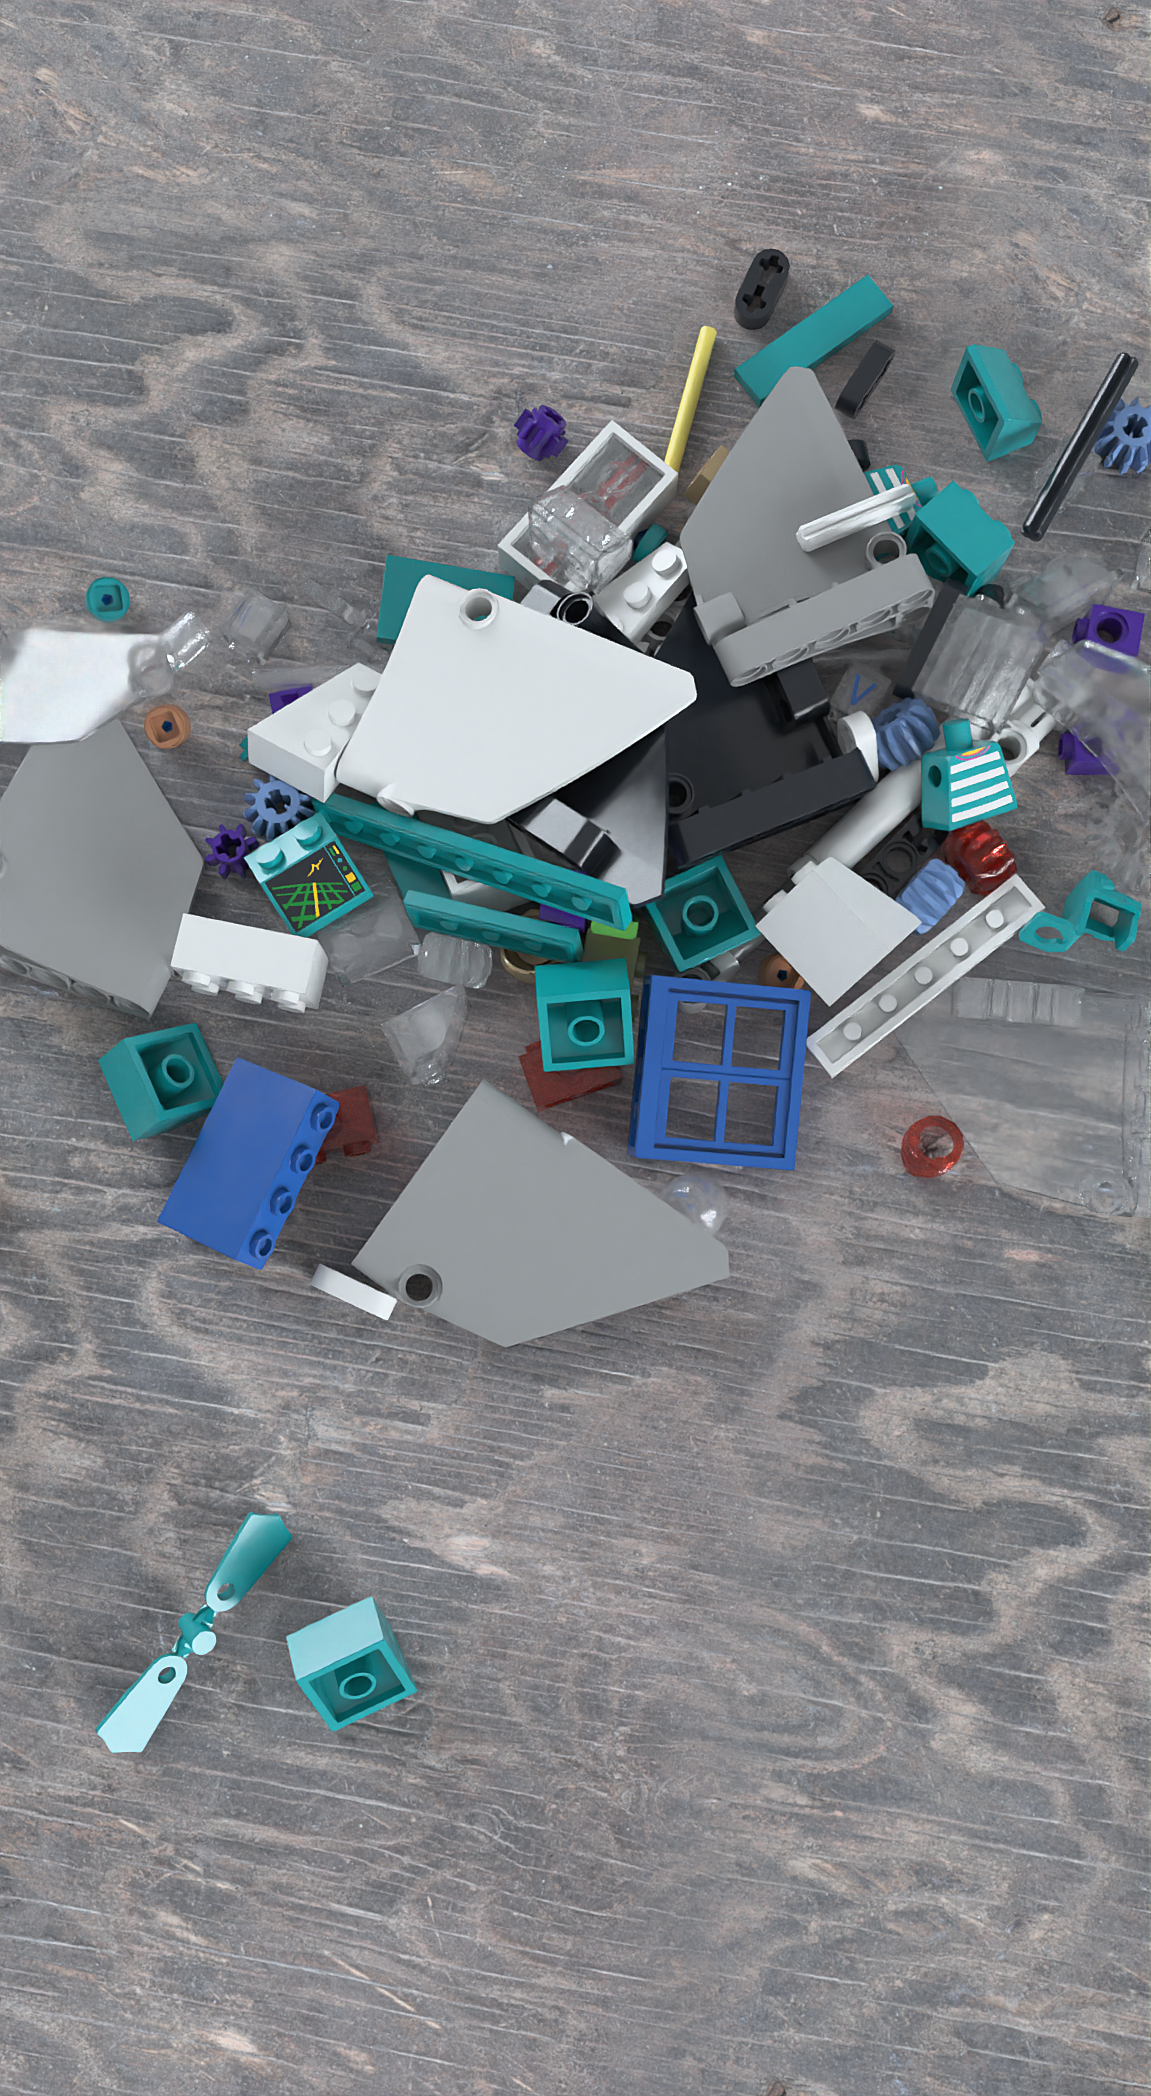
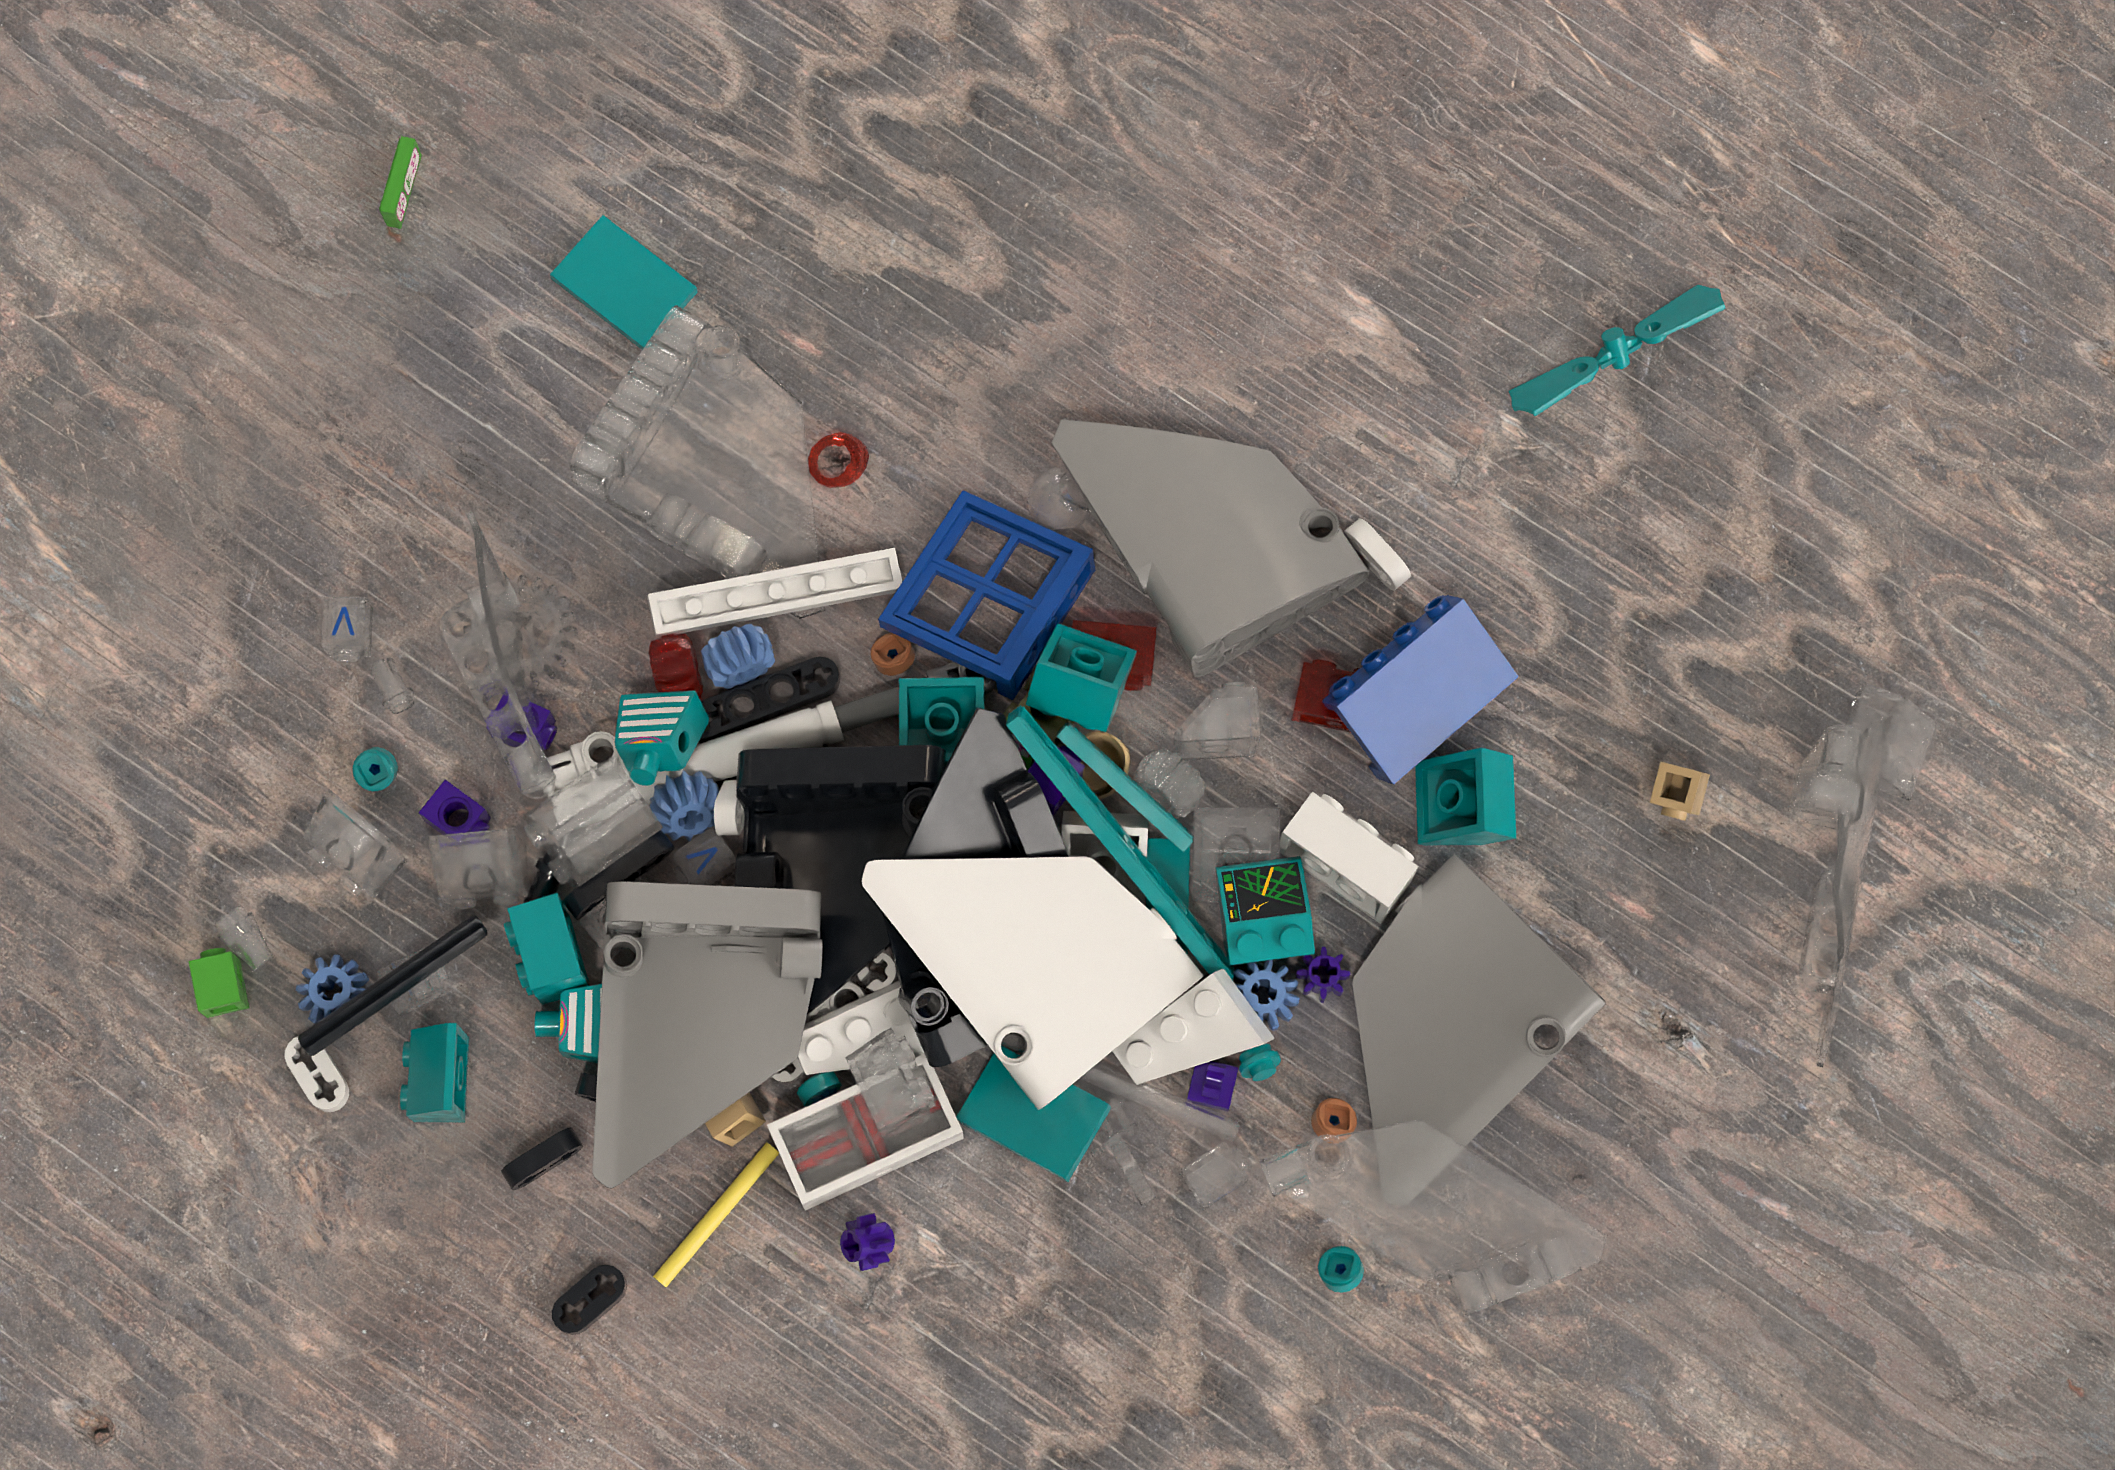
camera: 160 degrees left, 5 degrees down
(350, 1664) = (1501, 273): teal slope -> none
(815, 338) = (567, 1225): teal tile -> none
(834, 926) = (834, 648): white slope -> none
(856, 517) = (630, 1003): white axle -> none
(1075, 918) = (614, 590): teal piece -> none
(1096, 368) = (307, 1079): none -> white beam

